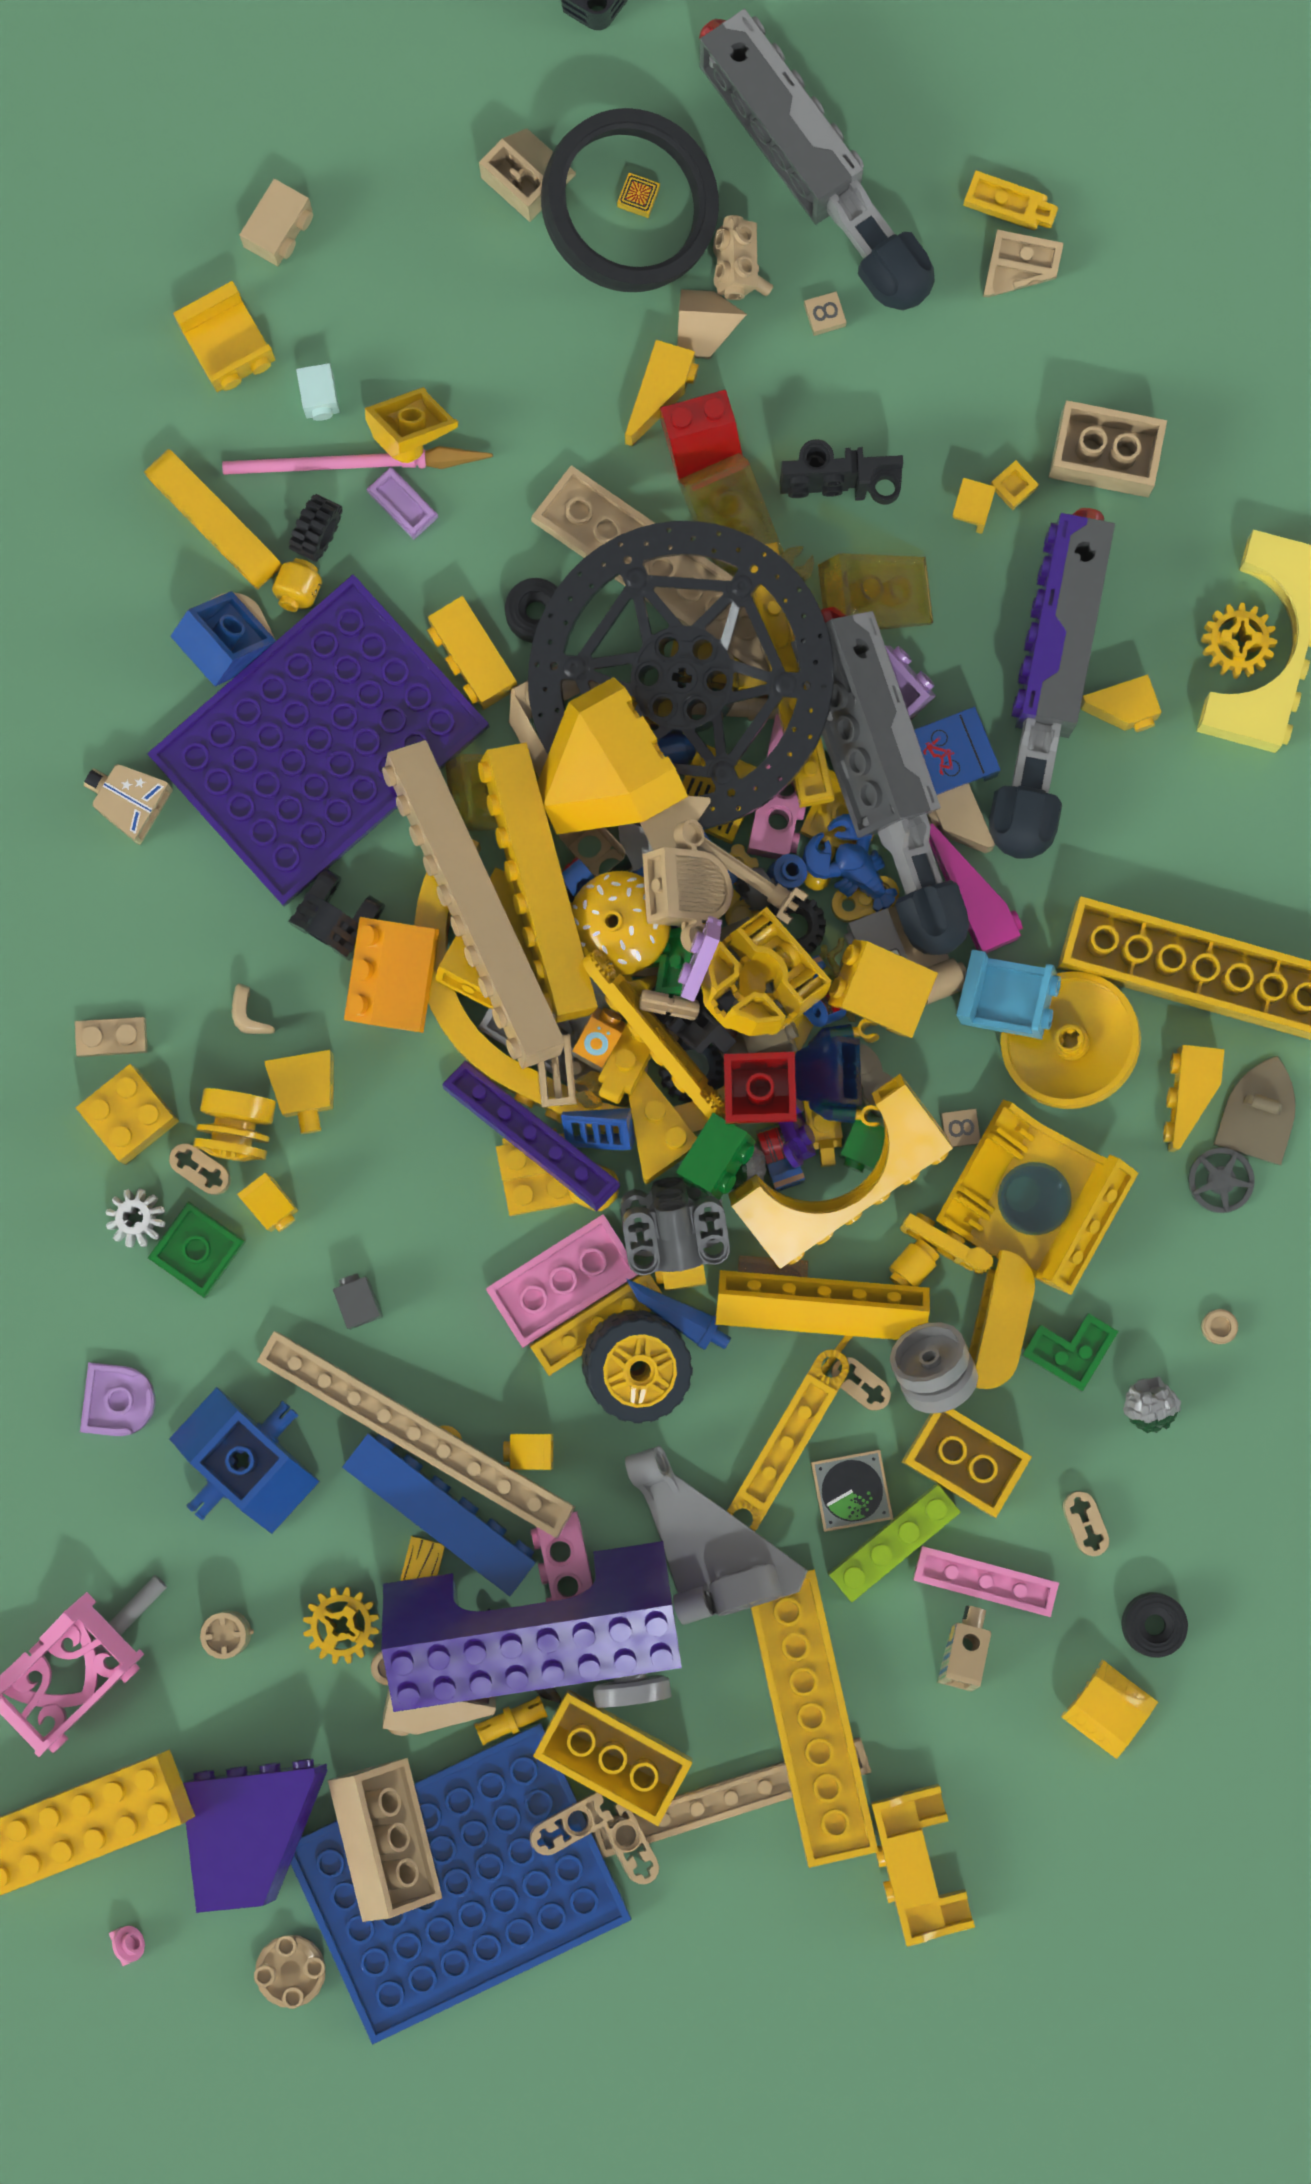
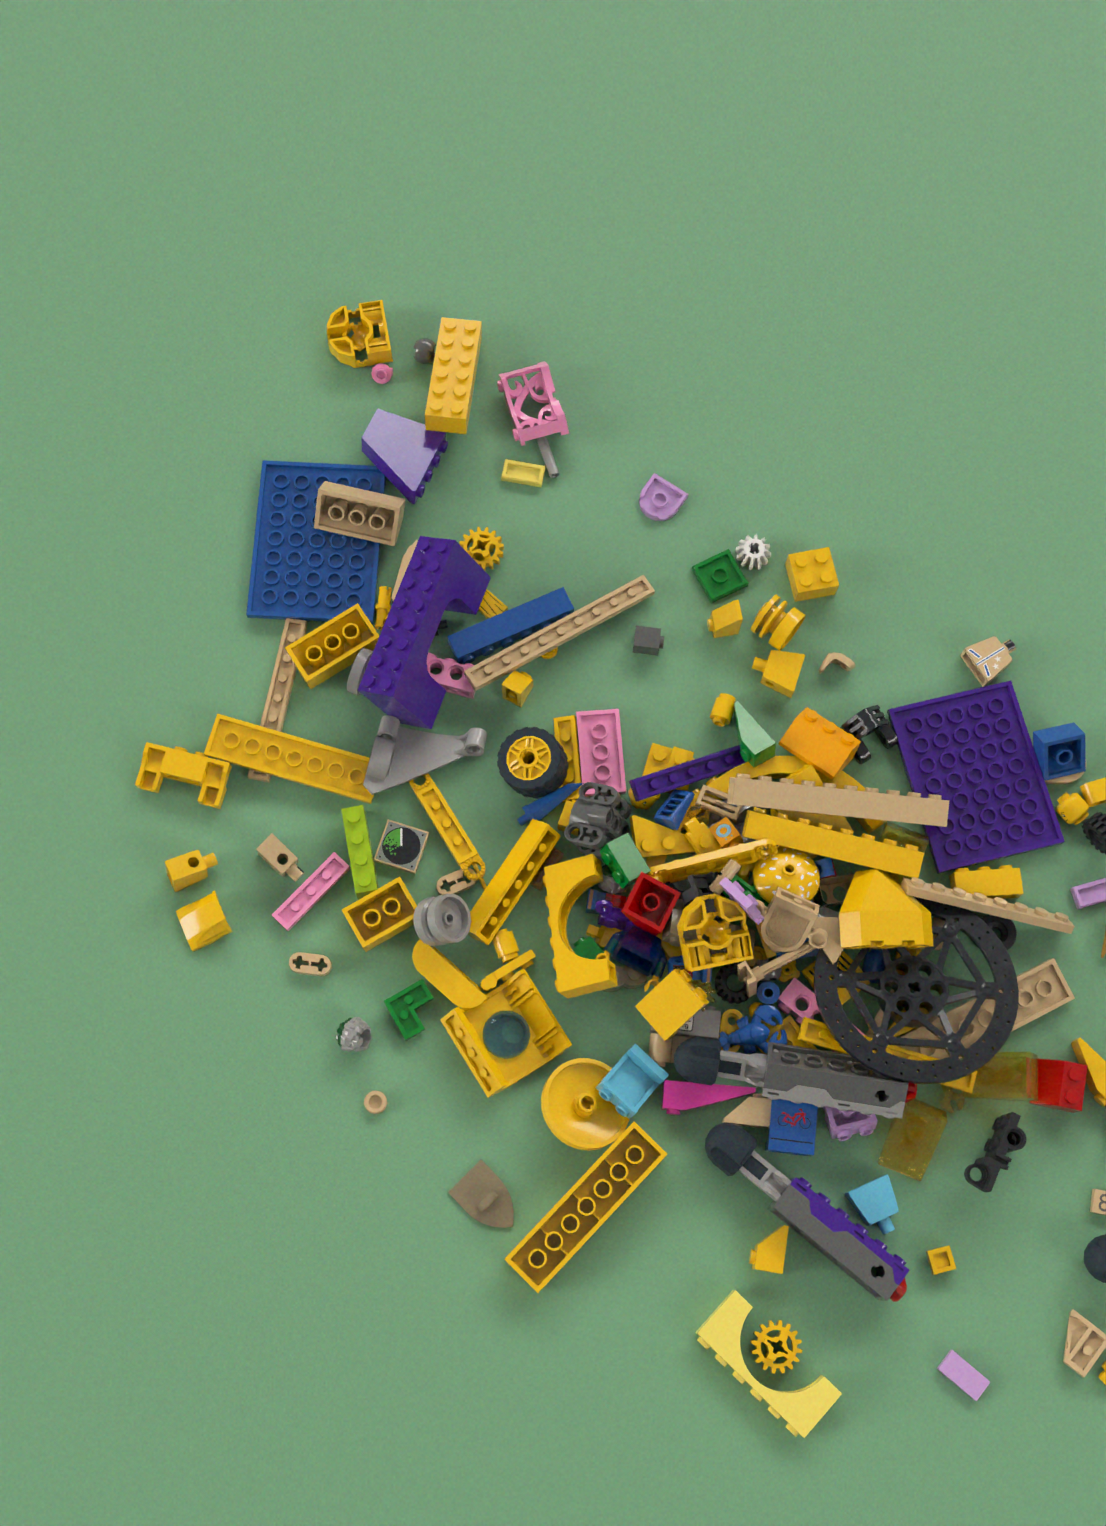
camera: 115 degrees right, 10 degrees down
(38, 2016) = (344, 348): none -> yellow connector
(55, 1897) = (424, 351): none -> dark grey piece
(111, 1037) = (859, 588): tan plate -> none
(181, 1631) = (523, 473): none -> light yellow tile
(195, 1176) = (760, 594): tan beam -> none
(225, 1634) = (509, 490): tan piece -> none
(272, 1481) = (575, 546): blue slope -> none
(290, 1971) = (322, 441): tan dish -> none
(406, 1139) = (723, 709): none -> yellow brick
(438, 1068) = (753, 740): none -> slope
(509, 636) = (980, 903): none -> tan plate
(596, 1819) = (307, 622): tan beam -> none
(961, 1127) = (569, 1015): tan tile -> none
(974, 503) = (940, 1226): yellow panel -> none
(987, 601) = (875, 1203): none -> medium azure torso
(1065, 1779) = (189, 869): none -> yellow torso
(1107, 449) = (937, 1329): tan brick -> none
(1142, 386) = (963, 1375): none -> lavender tile
(1174, 1629) = (221, 967): black tyre -> none
(1195, 1082) = (522, 1166): yellow slope -> none
(1221, 1180) = (458, 1151): dark grey wheel -> none

